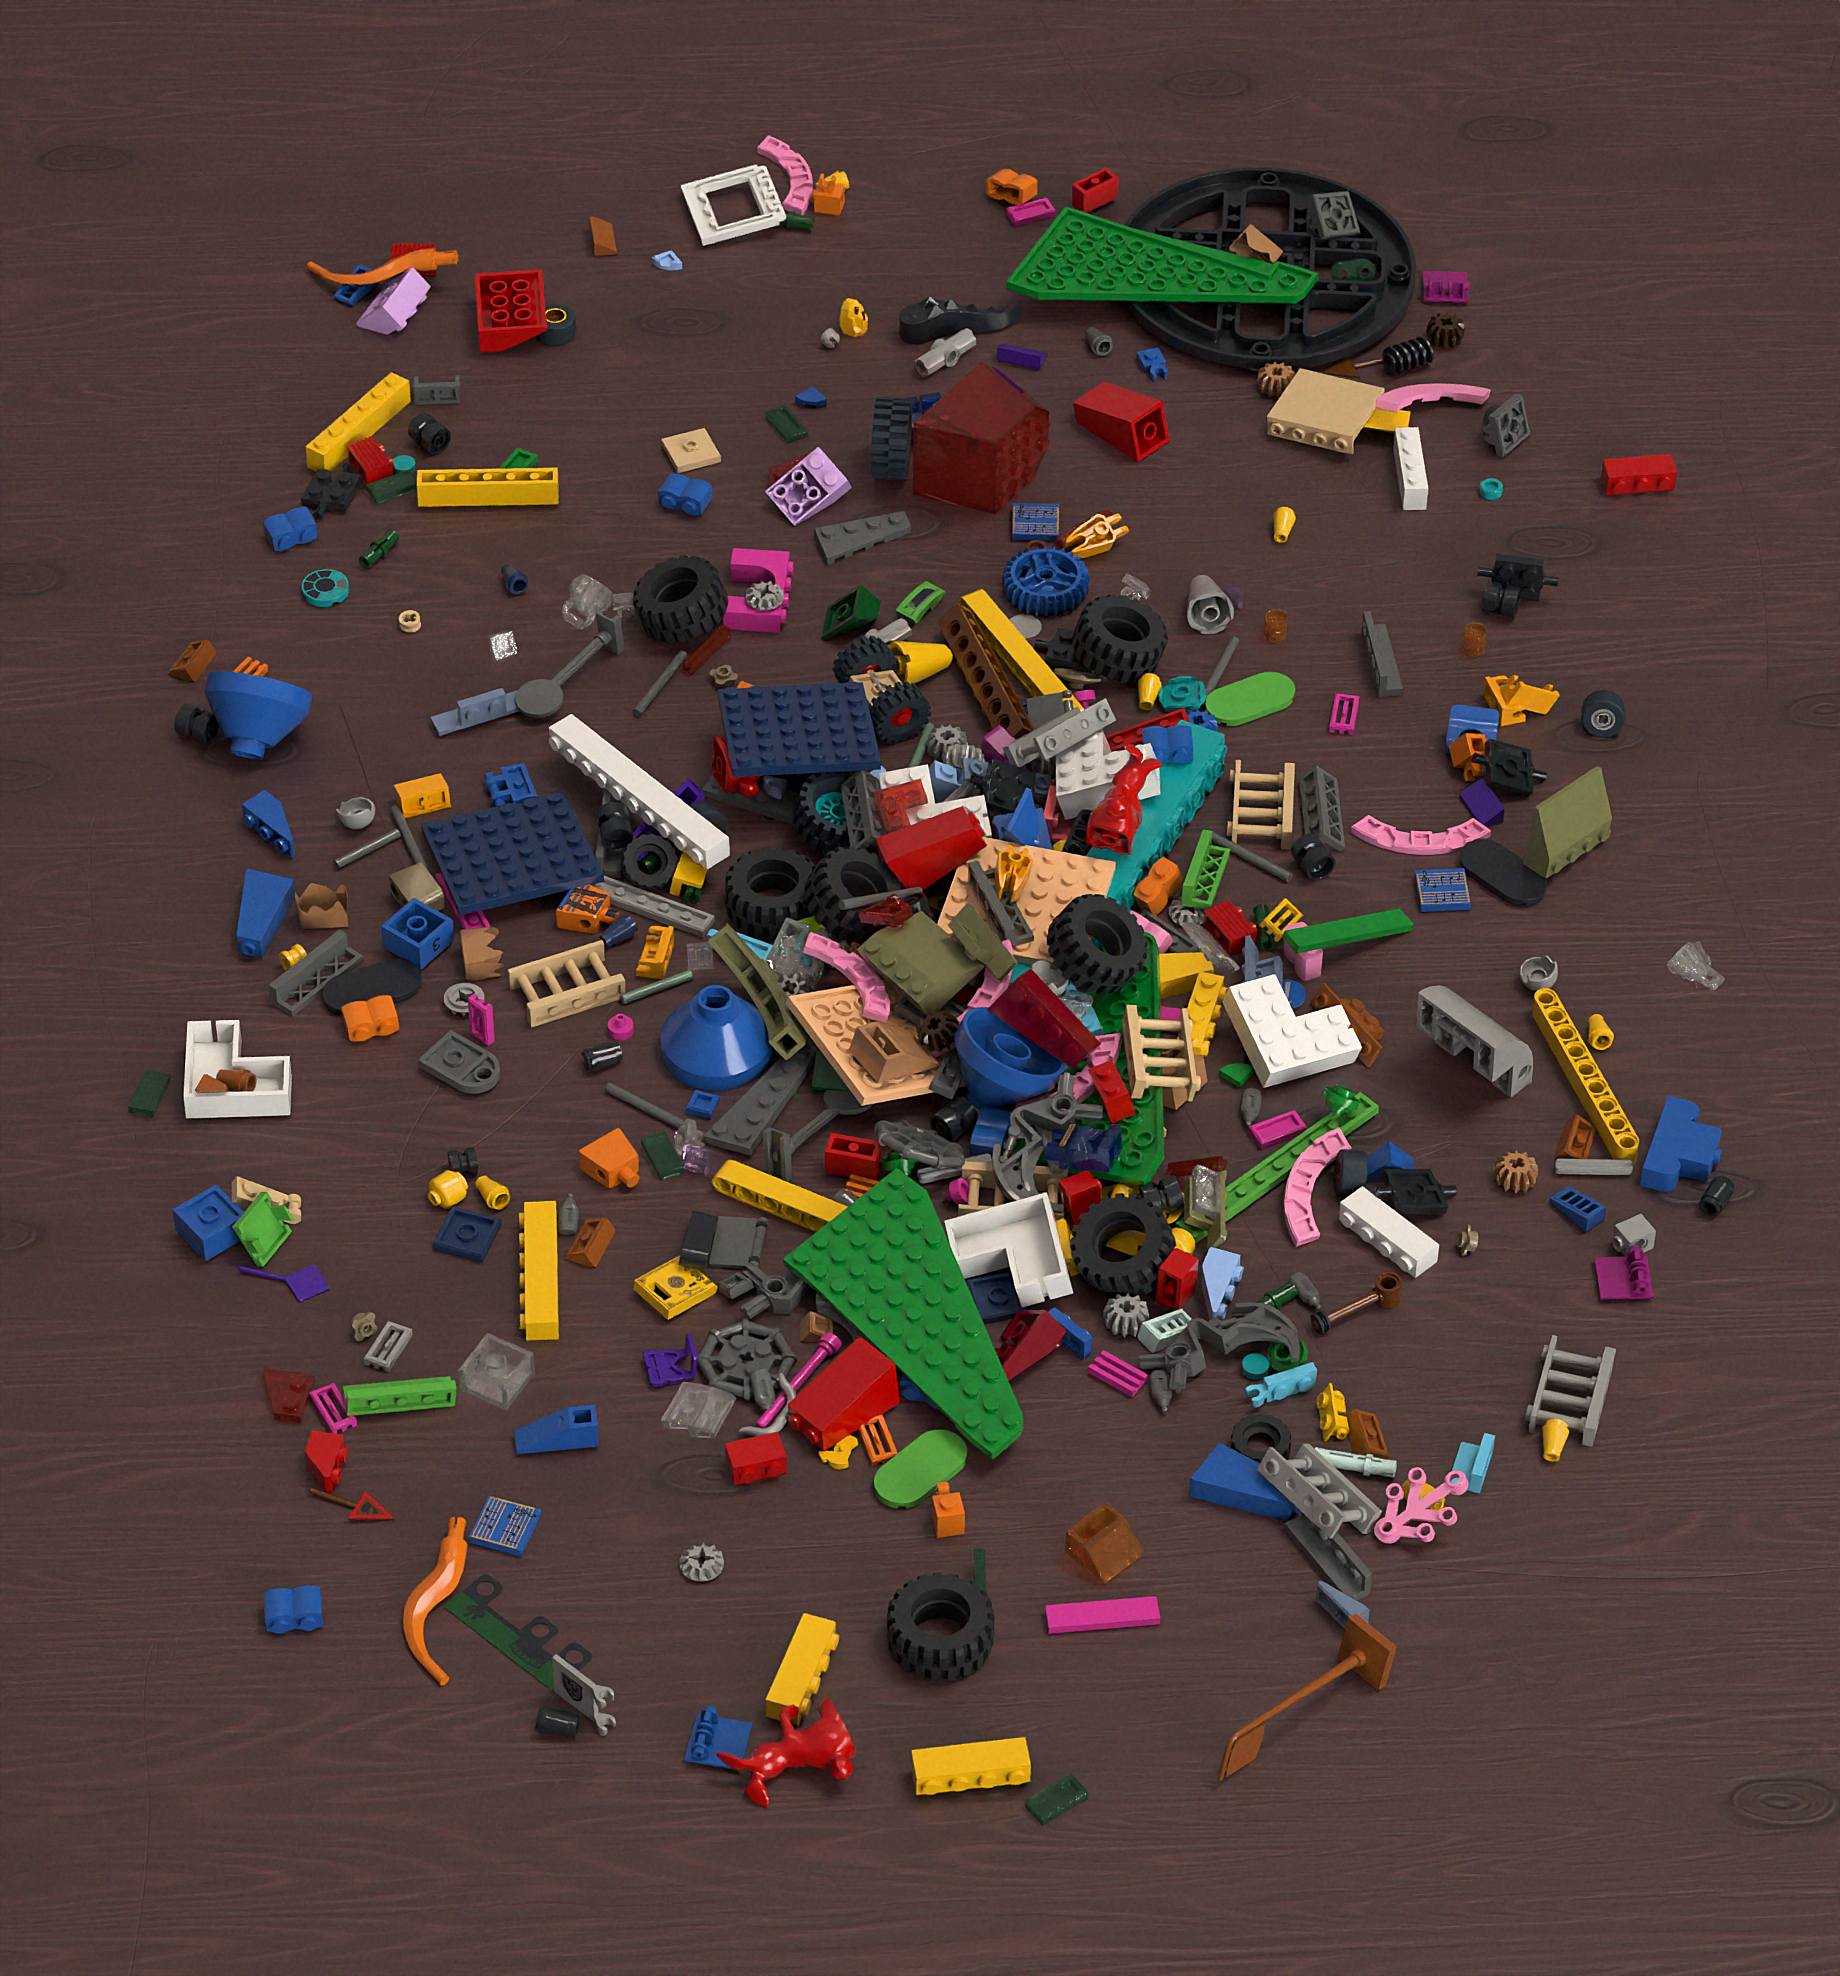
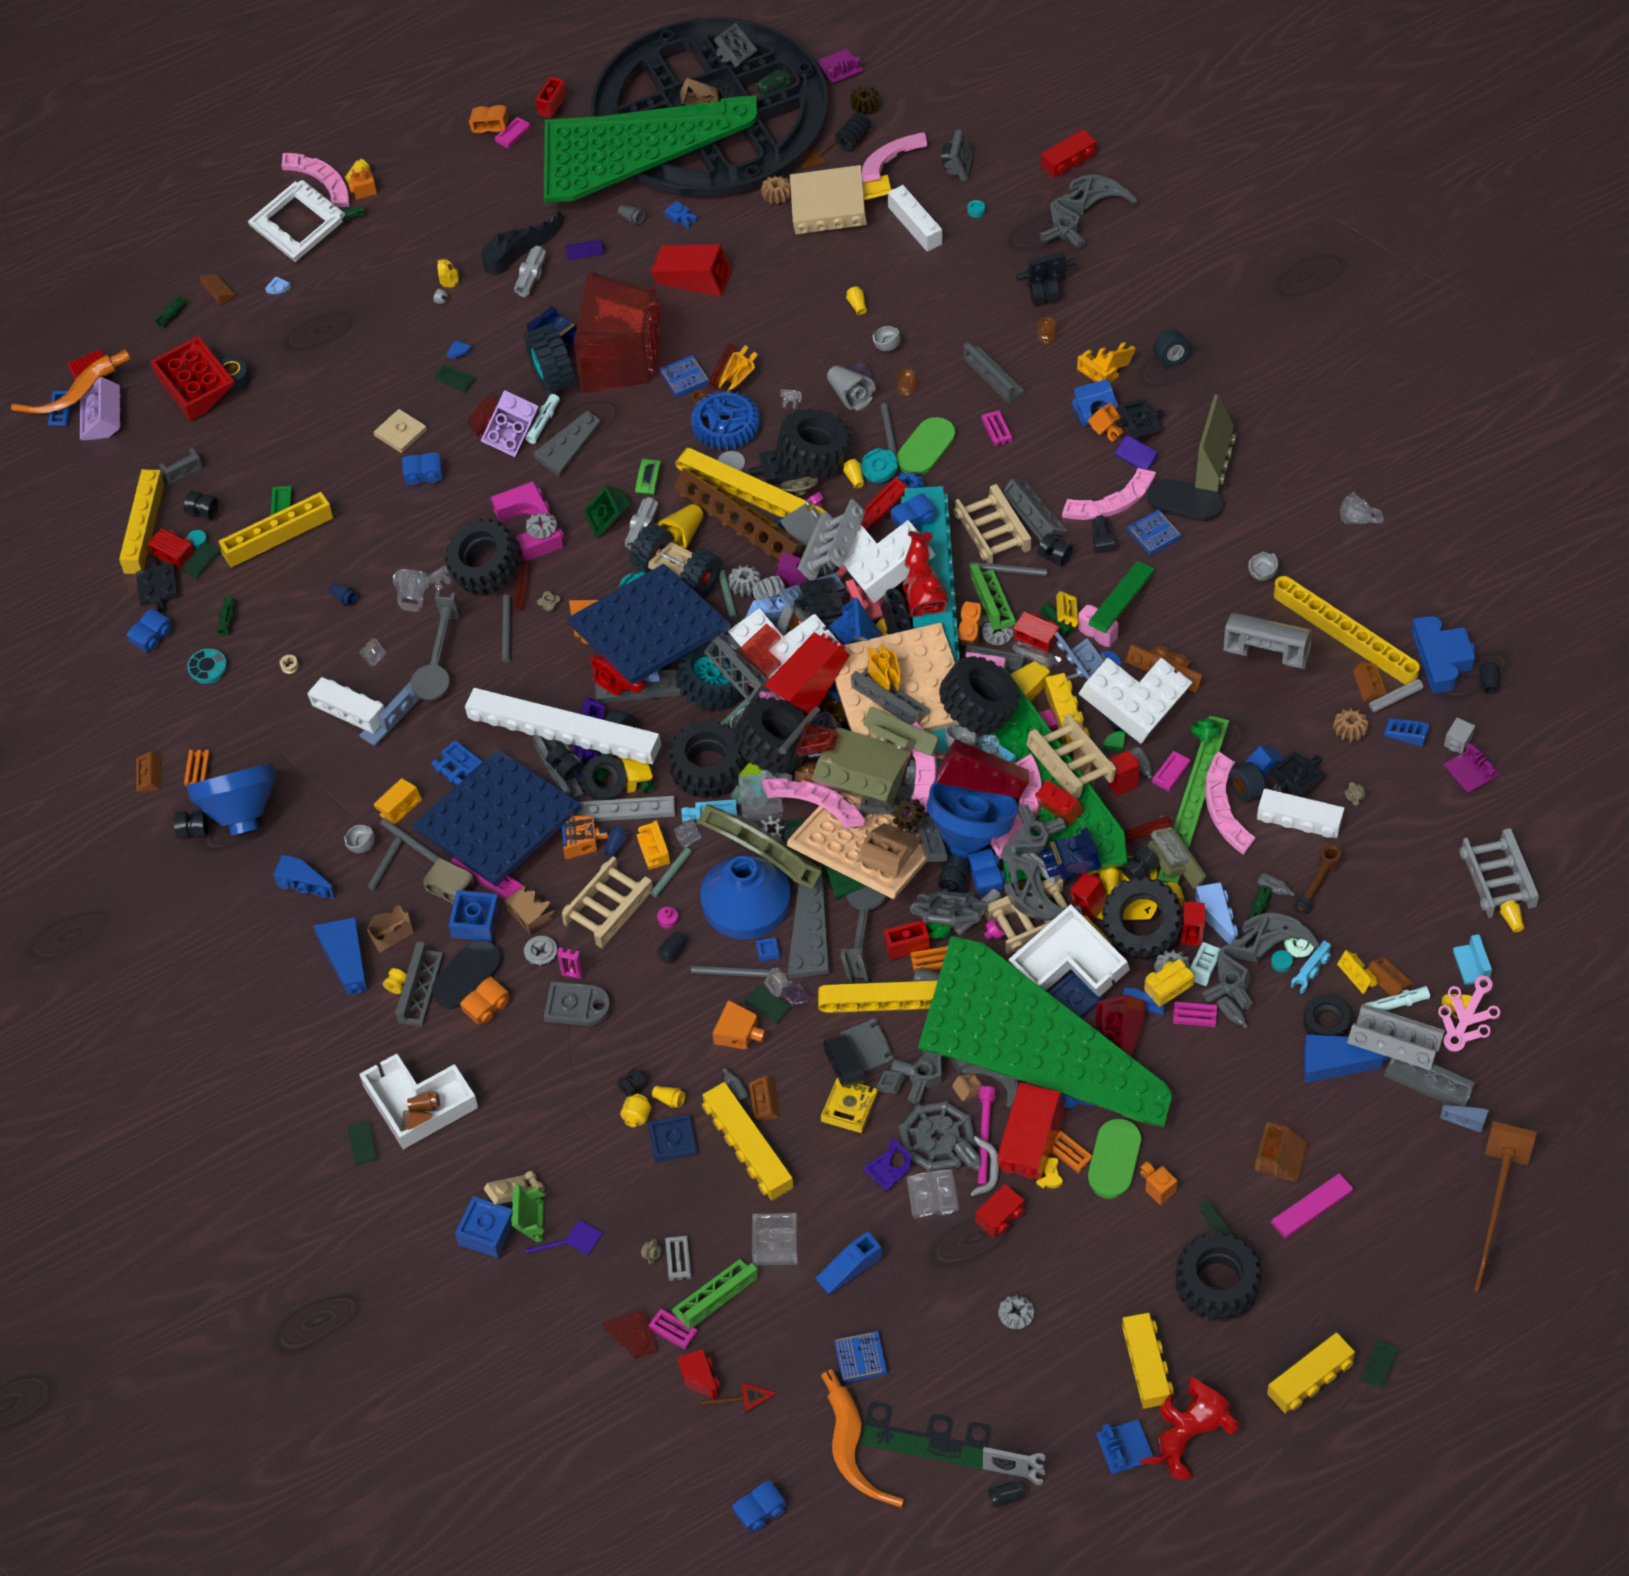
camera: 25 degrees left, 10 degrees up
(435, 680) = (346, 704): none -> white brick
(537, 240) = (170, 311): none -> dark green pin
(858, 495) = (546, 412): none -> light aqua pin
(1102, 1320) = (1168, 982): none -> yellow brick
(1214, 1102) = (1126, 773): none -> red brick
(1286, 574) = (887, 338): none -> light grey hair
(1377, 870) = (1103, 539): none -> black piece
(1599, 1033) = (1332, 592): yellow cone -> none
(1636, 519) = (1065, 208): none -> dark grey piece

